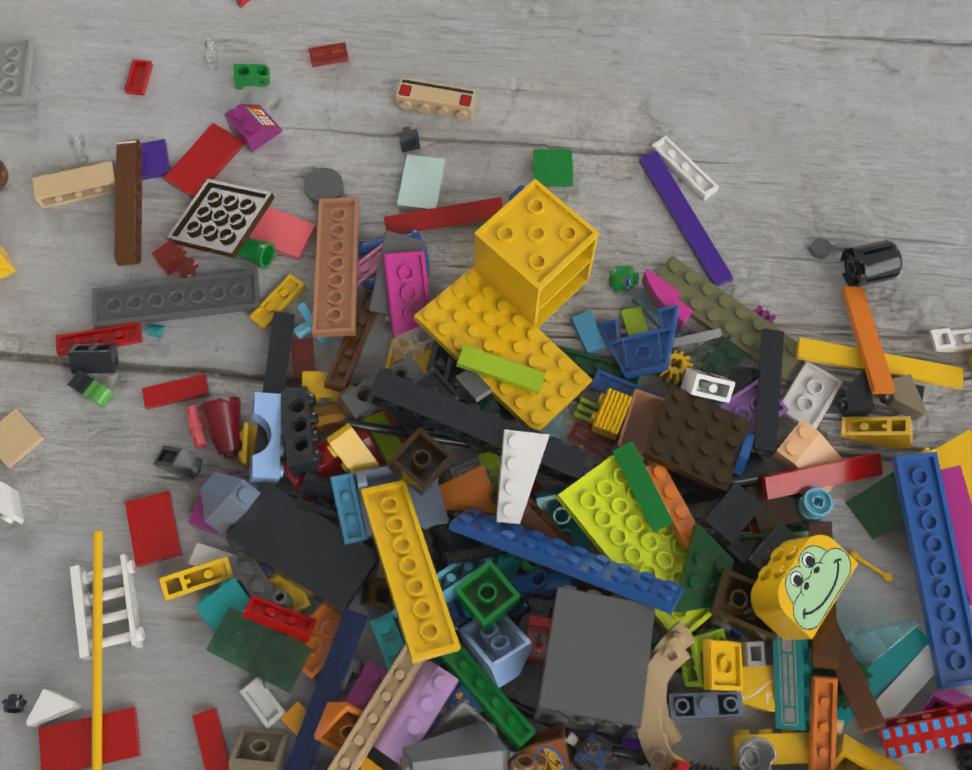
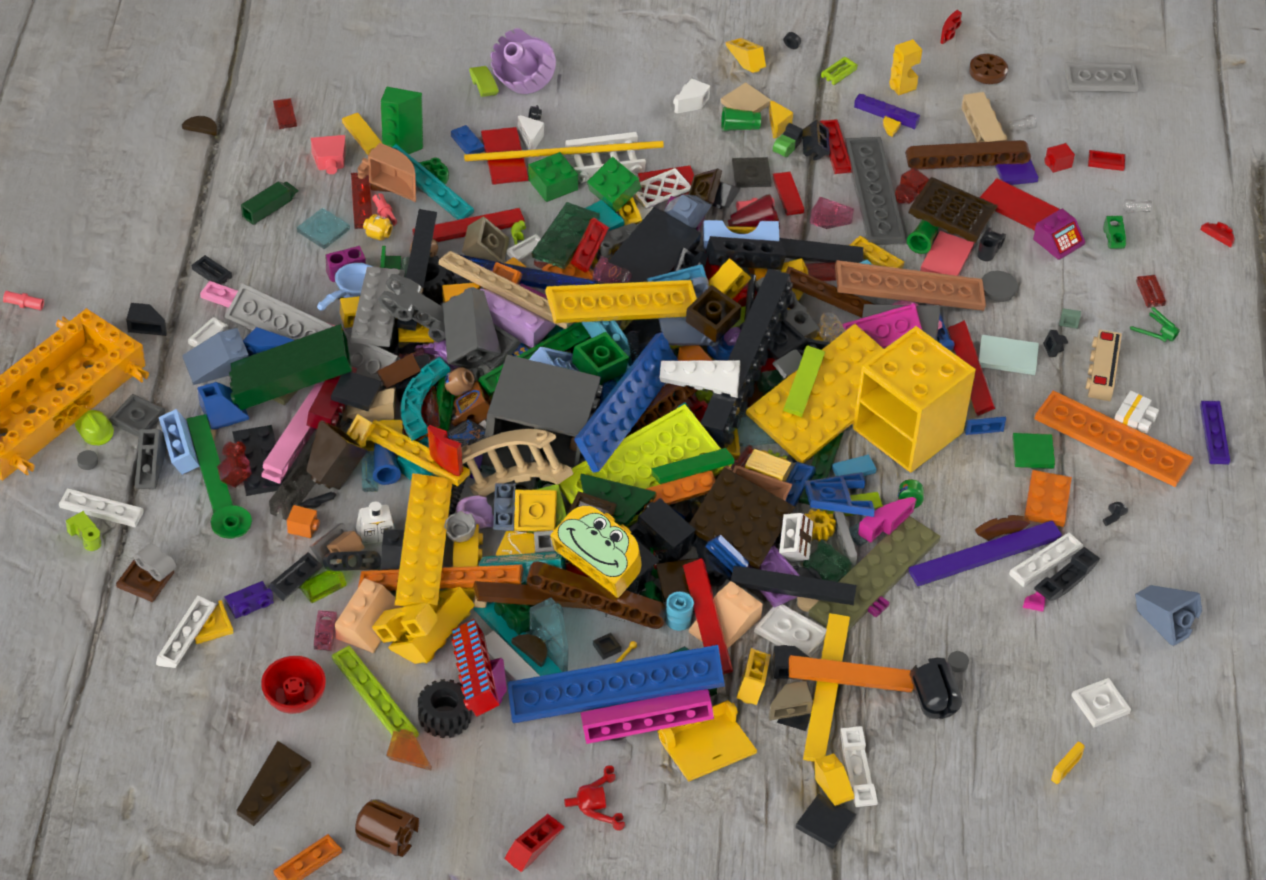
camera: 90 degrees right, 20 degrees down
(45, 282) = (884, 109): none -> dark purple piece
(50, 399) = (779, 118): none -> yellow slope
(51, 444) = (739, 119): none -> green plant
(69, 279) = (891, 125): none -> yellow tile
(136, 116) = (1059, 157): none -> red brick
(137, 432) = (751, 172): none -> clear smoke tile
(140, 673) = (553, 177): none -> green brick
(155, 330) = (845, 179): teal piece -> none
(179, 482) = (706, 185): none -> dark brown tile
(180, 589) = (614, 184): none -> green brick
(185, 537) = (662, 177): none -> white window
(215, 346) = (830, 214): none -> clear pink slope
(230, 718) = (516, 231): none -> lime arm
(267, 184) = (990, 244): none -> black piece
(342, 587) = (608, 273): none -> clear pink leg
(373, 123) = (1070, 318): none -> sand green tile
(386, 43) = (1168, 330): none -> green plant
(498, 79) = (1135, 410): none -> white hips
(512, 20) = (1215, 432): none -> dark purple tile
(529, 101) = (1114, 438): none -> orange plate
(608, 161) = (1048, 498): none -> orange plate
(622, 103) = (1117, 509): none -> black plate
(659, 198) = (1002, 526): none -> reddish brown tile
(706, 152) = (1068, 576): none -> black slope
(713, 741) = (478, 508): none -> lavender hair
(735, 179) = (1034, 602): none -> dark pink tile
(741, 71) = (1169, 611): none -> sand blue slope
(843, 135) = (1101, 702): none -> white tile
(861, 583) = (607, 646): none -> black tile
(889, 663) = (532, 647): none -> dark brown tile
(922, 164) = (1068, 762): none -> yellow tile

